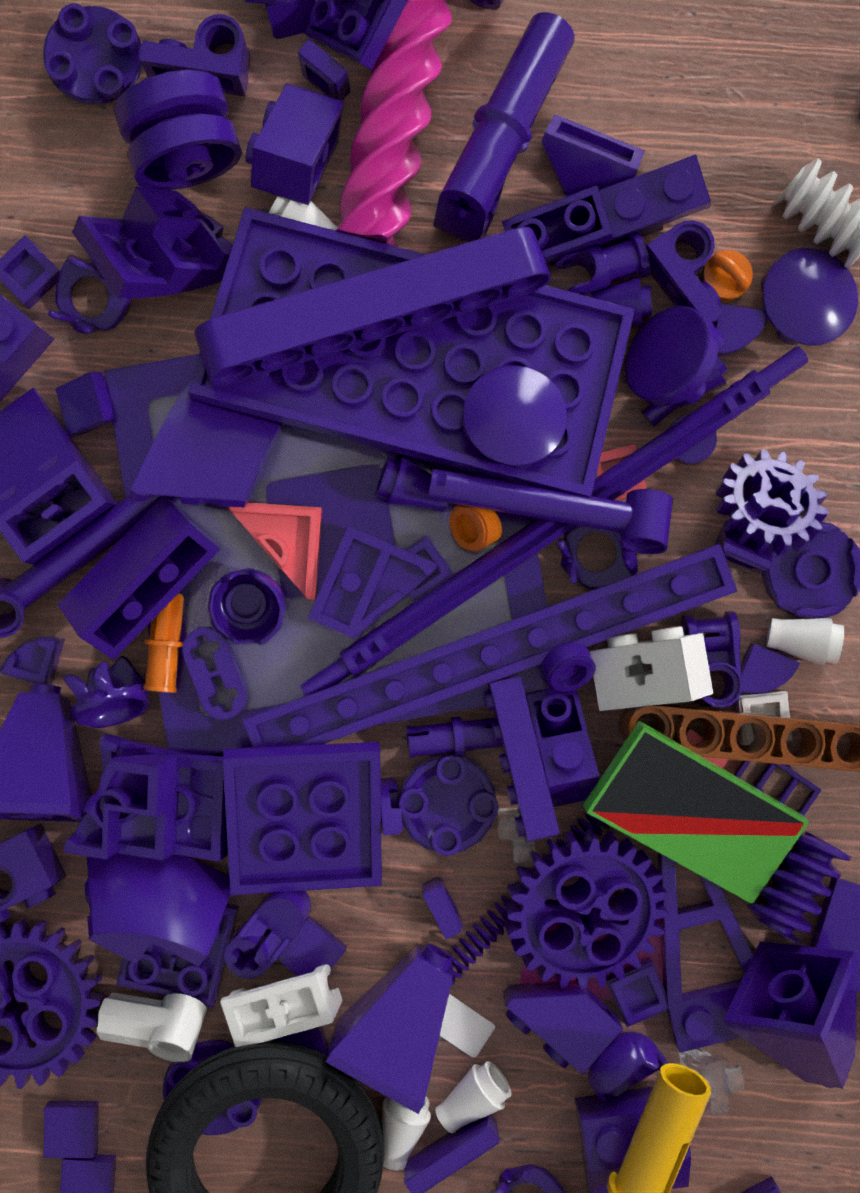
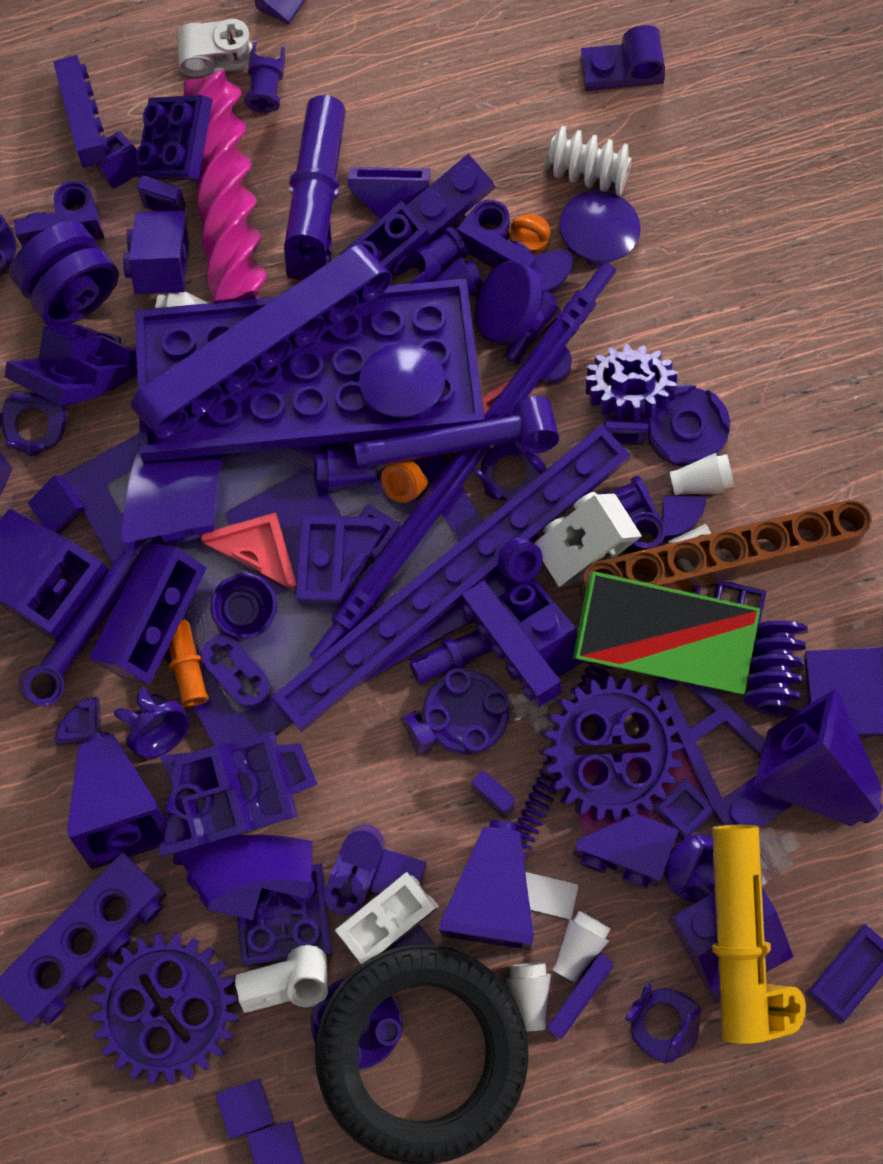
camera: 15 degrees left, 15 degrees down
(303, 817) = (350, 758): dark purple plate -> none

